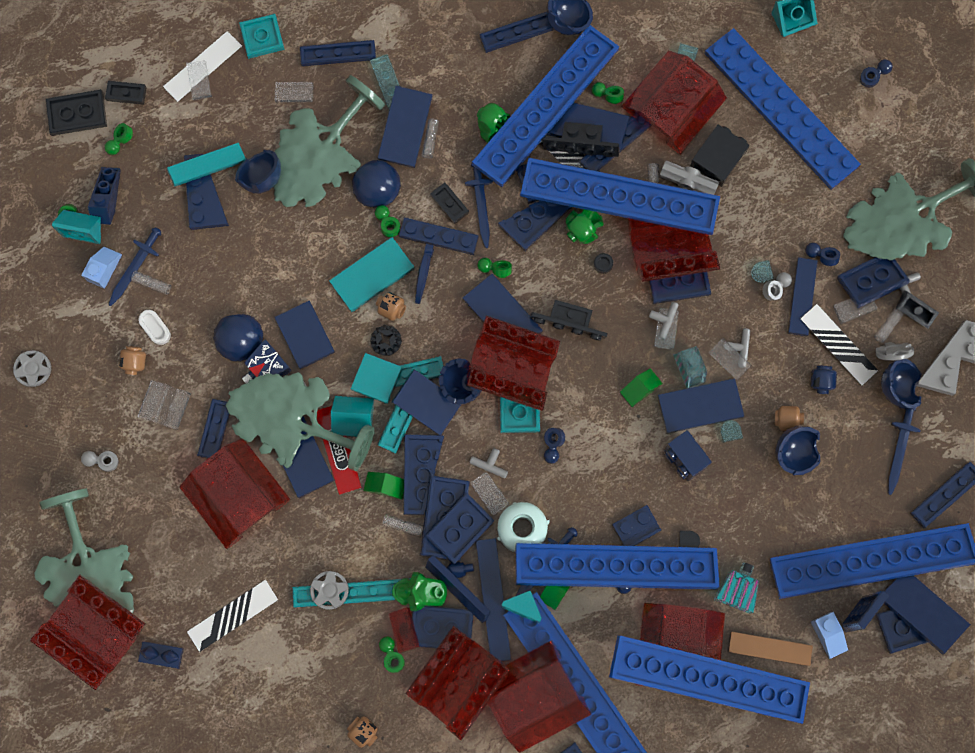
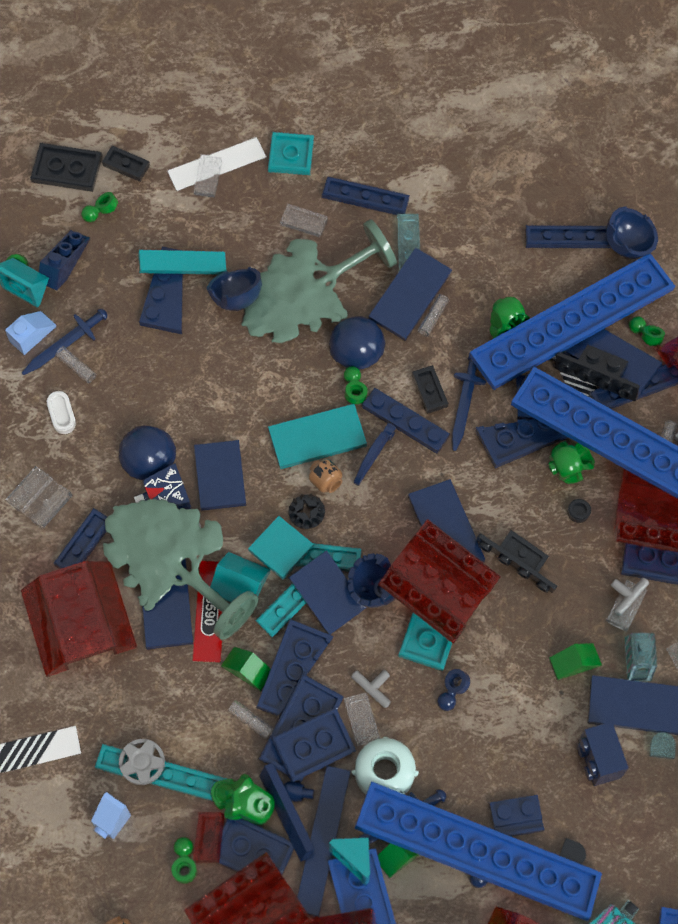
camera: 15 degrees right, 10 degrees down
(132, 360) = (24, 437): medium nougat head -> none
(320, 643) = (110, 817): none -> light blue slope
(500, 268) = (461, 477): green plate -> none

